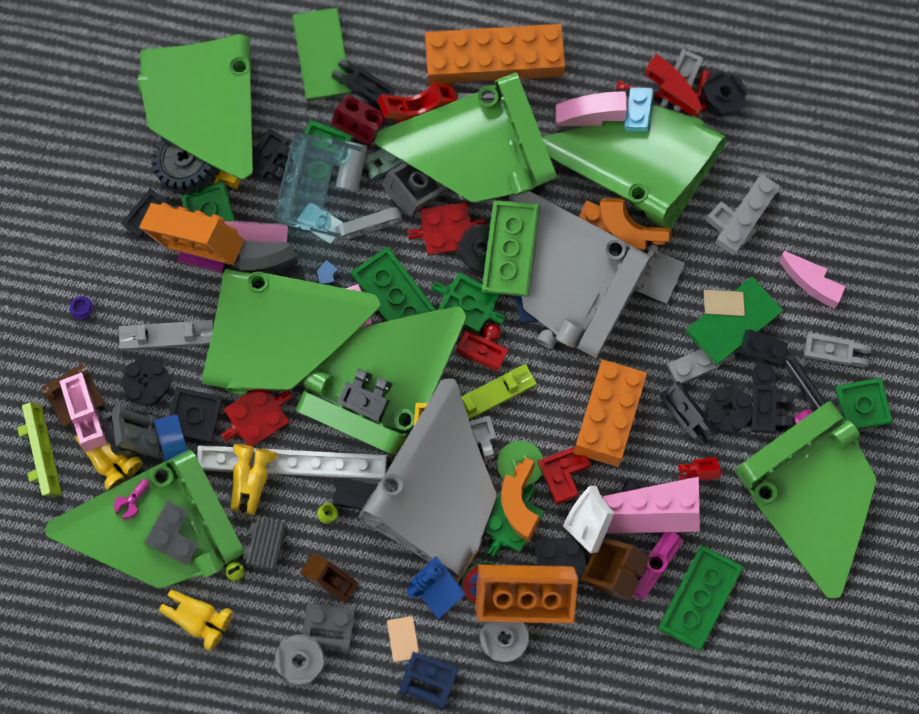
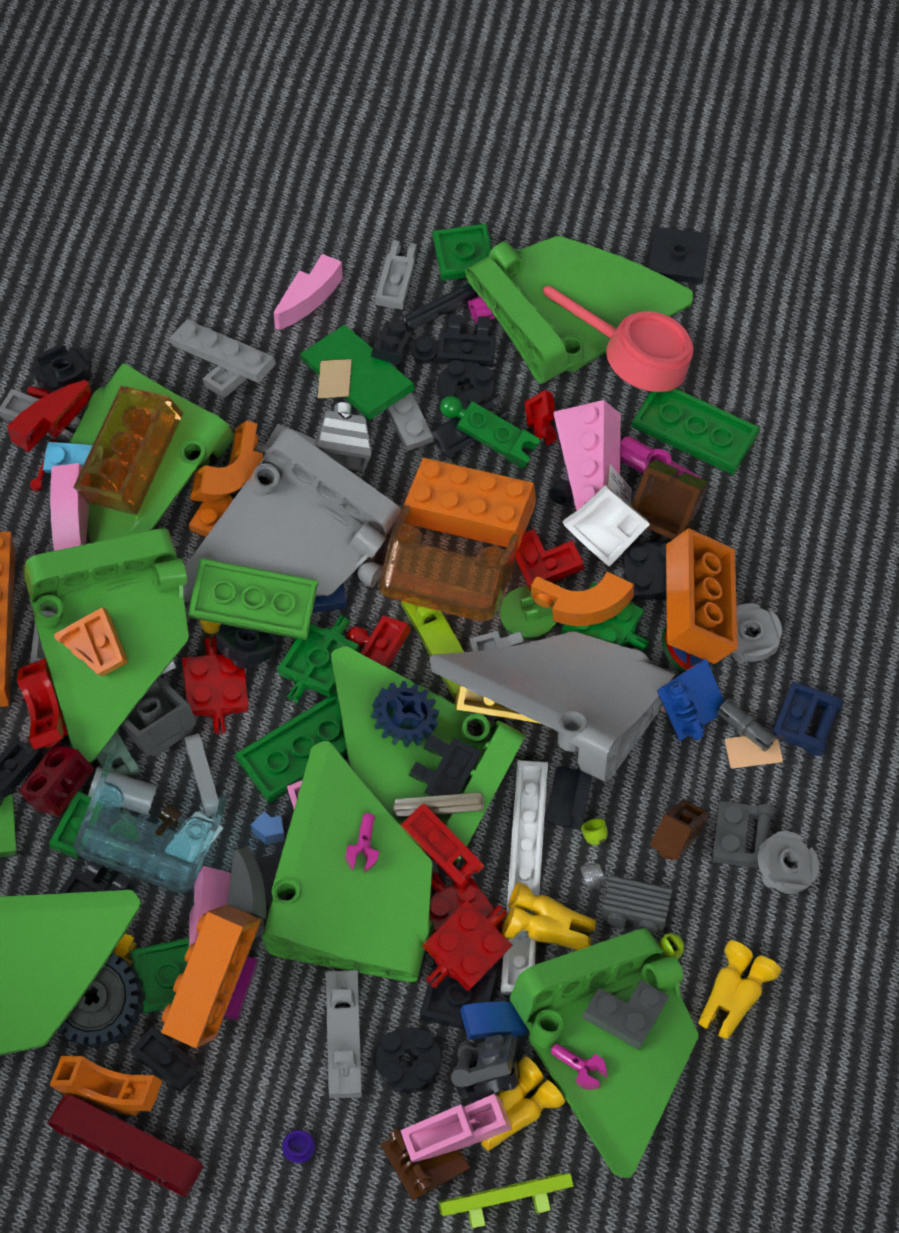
camera: 85 degrees left, 15 degrees down
(82, 190) = (125, 1145): none -> dark red beam
(122, 173) = (105, 1088): none -> orange arch
(225, 417) = (467, 946): none -> red plate
(290, 511) = (593, 875): none -> clear plate
(299, 337) = (363, 845): none -> dark pink bar
(302, 395) = (441, 845): none -> red plate
(334, 392) = (441, 804): none -> dark tan axle
(335, 204) = (169, 817): none -> dark brown hand
(399, 376) = (404, 714): none -> dark blue gear
(420, 631) = (746, 725): none -> dark grey pin
(461, 133) = (95, 642): none -> orange wing
(528, 389) = (445, 578): none -> clear orange windscreen
(629, 531) = (619, 485): none -> white sticker
(636, 144) = (128, 450): none -> clear orange brick
(668, 311) = (344, 437): none -> light grey torso
(680, 426) = (491, 430): none -> green plate
(764, 553) = (644, 349): none -> coral piece
(875, 586) = (679, 254): none -> black plate

